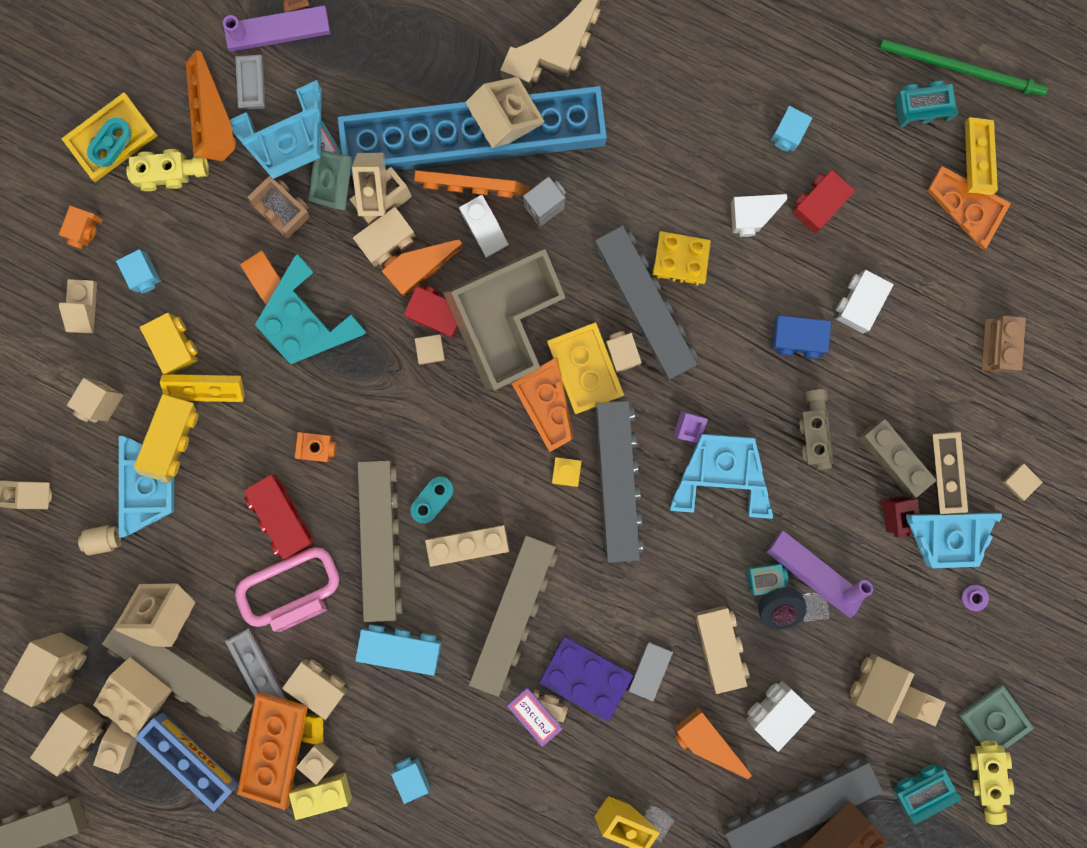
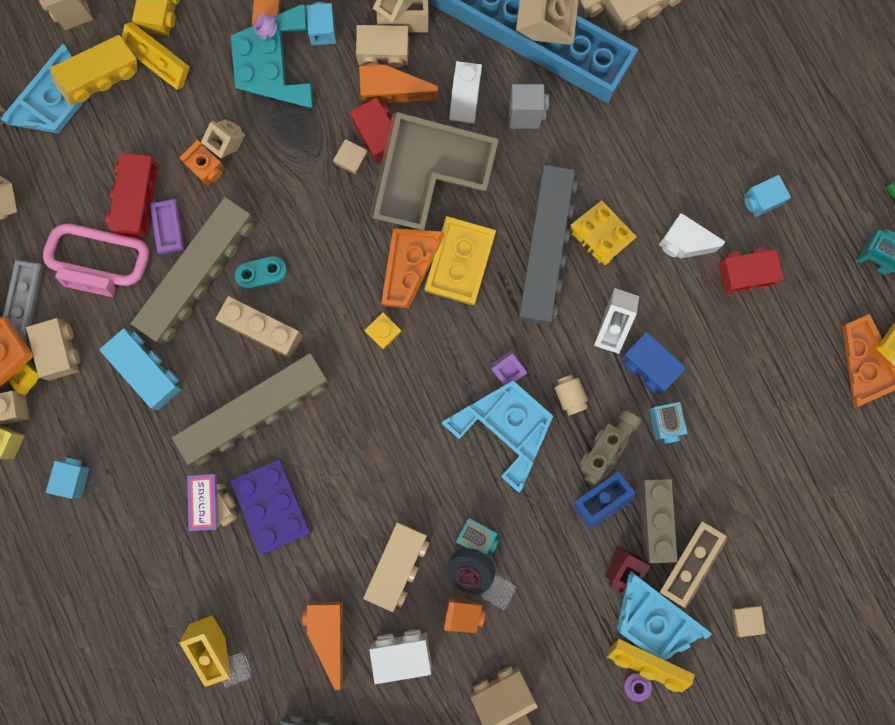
camera: 35 degrees right, 5 degrees down
(280, 297) = (265, 26): none -> lavender plate
(316, 407) = (226, 132): none -> tan brick
(319, 256) = (321, 23): none -> medium azure brick
(326, 520) = (167, 226): none -> medium lavender tile
(479, 185) = (480, 51): orange wing -> none
(617, 481) = (416, 366): dark grey brick -> none
(622, 351) = (499, 269): tan brick -> none
(650, 671) = (326, 541): light grey tile -> none
(747, 322) = (617, 320): none -> white slope
(756, 410) = (571, 395): none -> tan brick
(801, 647) = (463, 615): none -> orange slope
(819, 575) = (522, 568): medium lavender piece -> none
(844, 475) = (604, 501): none -> blue brick
(847, 374) = (668, 422): none -> brick
(863, 301) = (725, 374): white brick -> none
(973, 575) = (650, 666): none -> yellow plate
(1003, 344) = (816, 495): medium nougat window -> none

